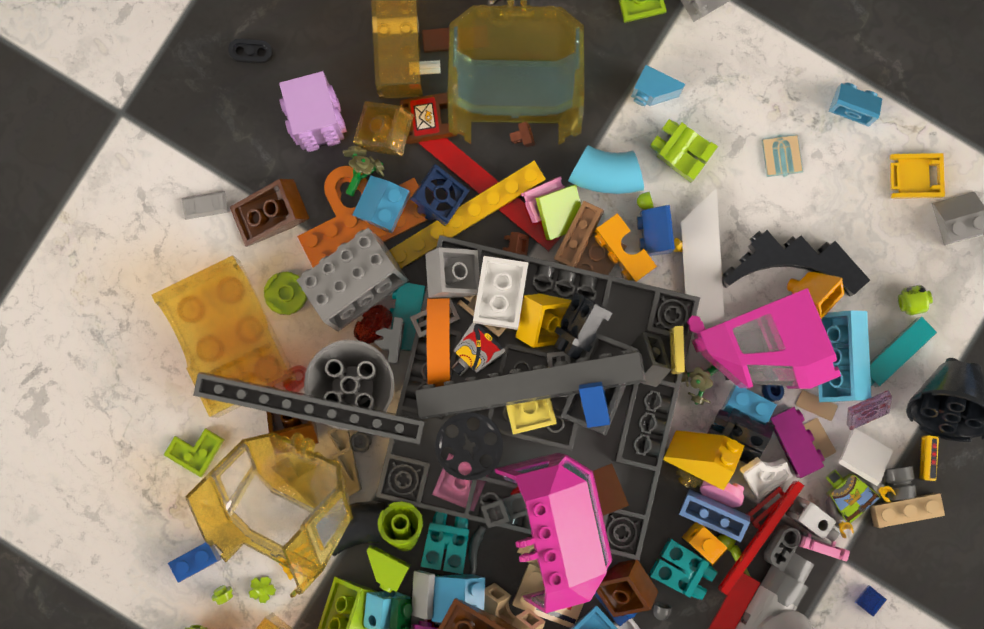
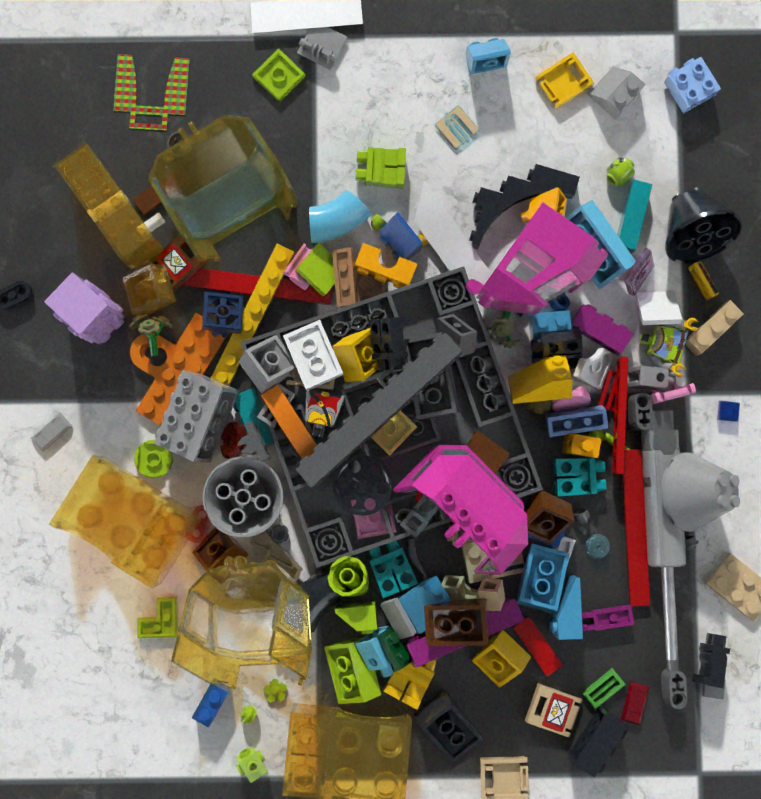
camera: 35 degrees left, 0 degrees up
(269, 211) = (102, 405): reddish brown slope -> none
(308, 407) = (221, 533): dark grey brick -> none
(382, 203) = (183, 346): dark azure slope -> none
(518, 243) = (303, 312): copper tile -> none
(523, 135) = (257, 230): copper tile -> none
(594, 404) = (437, 393): blue tile -> none
(655, 87) = (333, 133): dark azure slope -> none
(677, 350) = (472, 314): light yellow tile -> none
(811, 403) = (594, 294): tan sticker -> none
(821, 441) = (618, 316): tan sticker -> none
(900, 481) = (694, 309): dark grey wheel -> none

